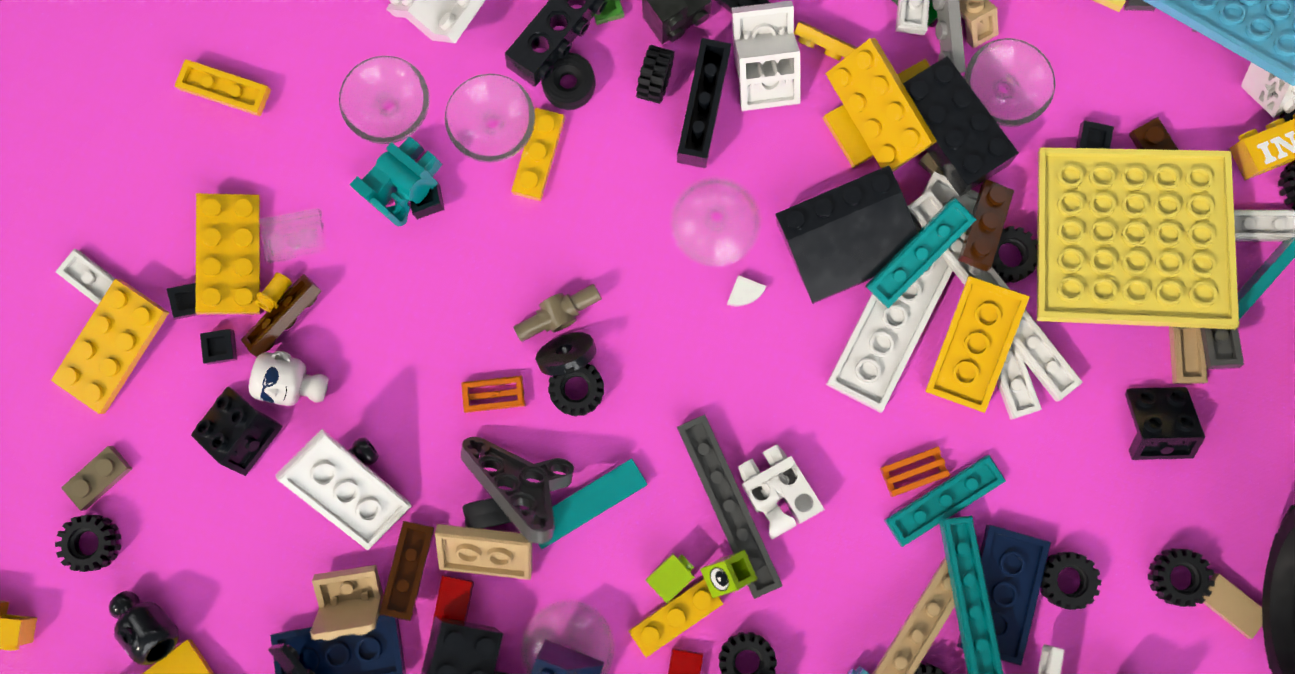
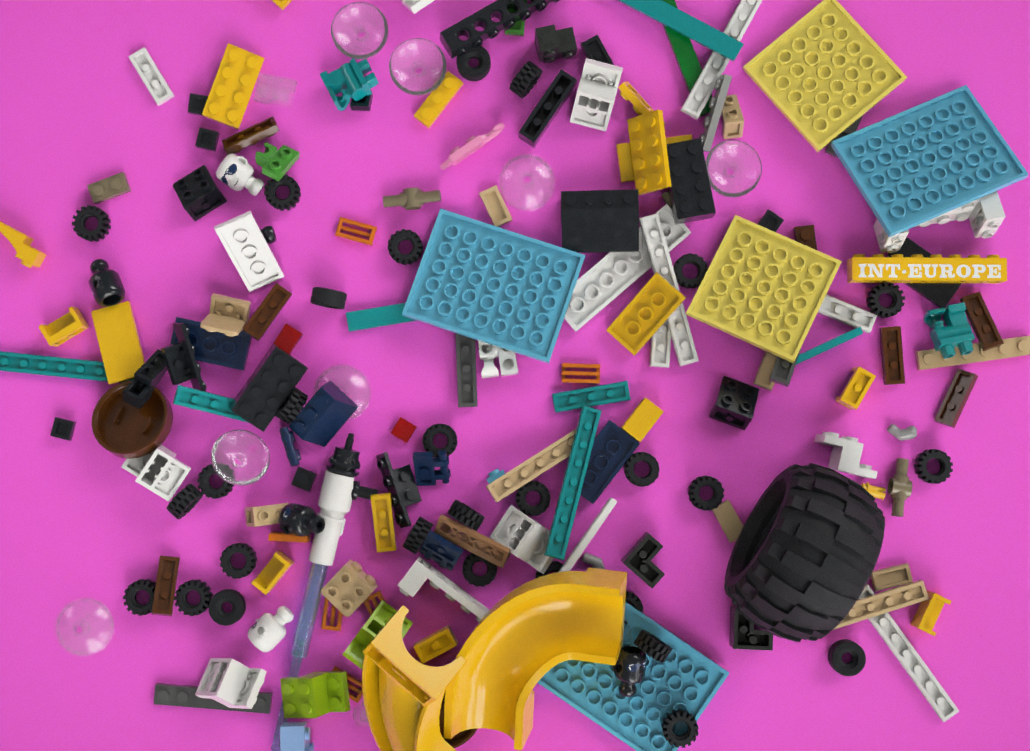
camera: 15 degrees right, 5 degrees up
(109, 346) = (144, 113): yellow plate -> none
(273, 292) = (250, 120): yellow pin -> none
(334, 339) = (276, 162): none -> bright green plate
(348, 367) = (282, 204): none -> black tyre
(483, 552) = (315, 318): tan tile -> none
(512, 473) = (349, 280): dark grey beam -> none
(566, 352) = (406, 223): black tile -> none
(615, 199) = (472, 145): none -> bright pink plate
(671, 577) = (416, 375): lime brick -> none
(674, 618) = (409, 400): yellow plate -> none
(685, 275) = (495, 206): none -> tan tile
(728, 574) = (448, 386): lime brick -> none
(734, 394) = (494, 285): none -> medium azure plate
(745, 292) = (527, 229): white tile -> none
(920, 252) = (635, 248): teal tile -> none
(984, 234) = (681, 247): reddish brown plate -> none
(1037, 504) = (642, 419): none -> yellow panel

